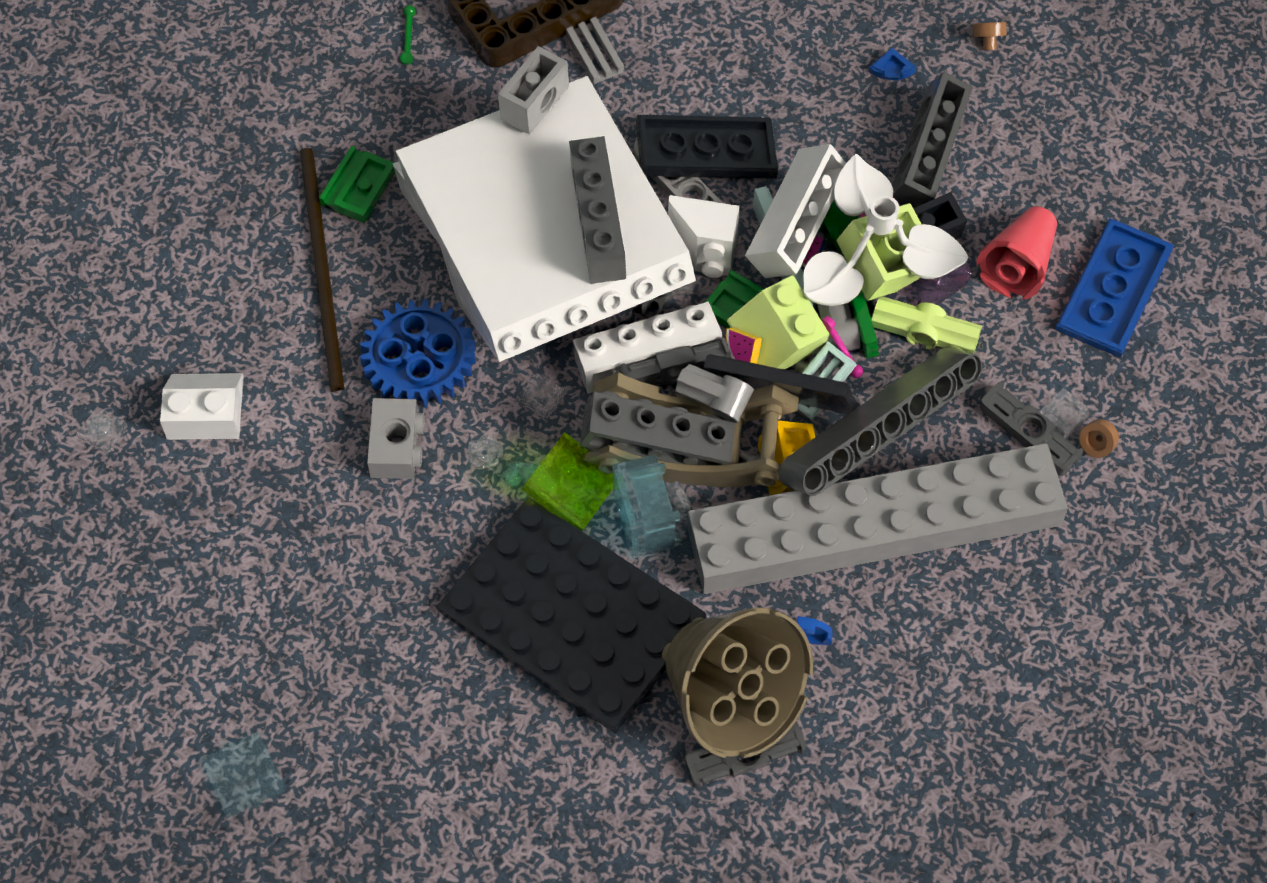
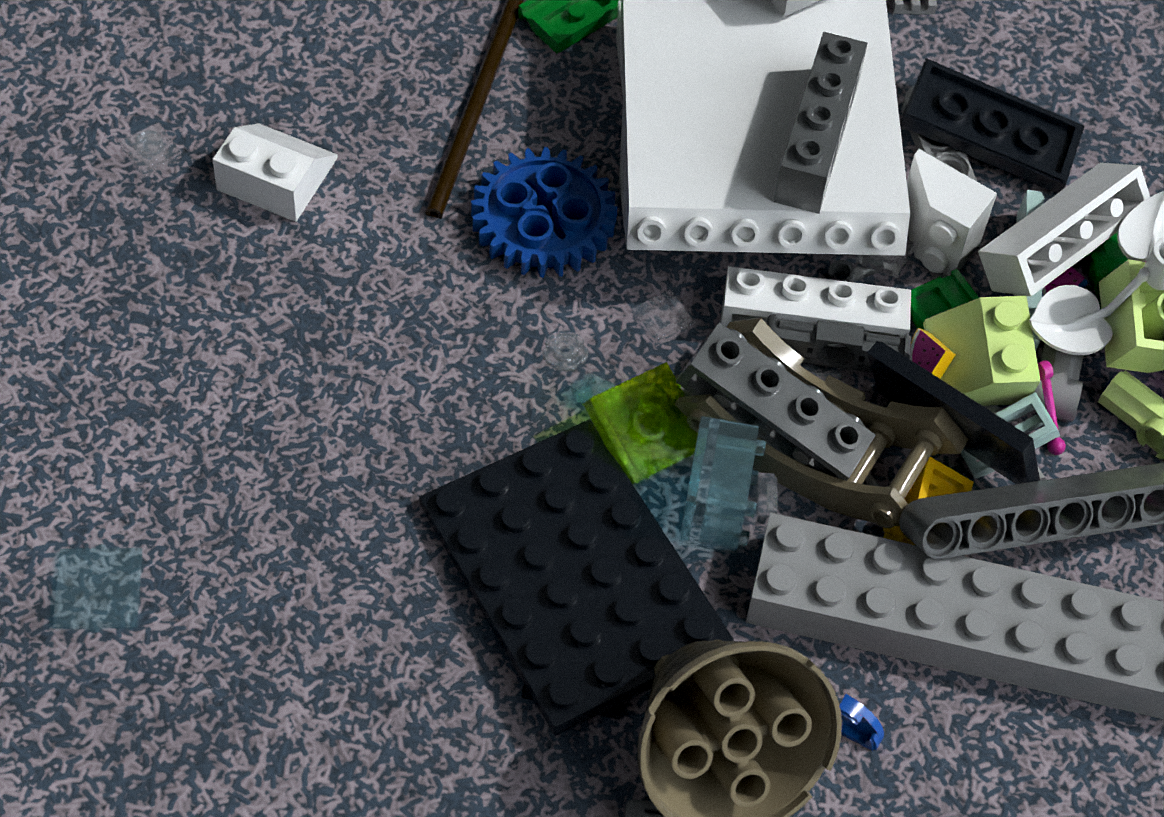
camera: 20 degrees right, 5 degrees down
(389, 420) = (473, 269): light grey brick -> none
(722, 396) = (874, 397): light grey piece -> none
(866, 330) = (1090, 395): green tile -> none

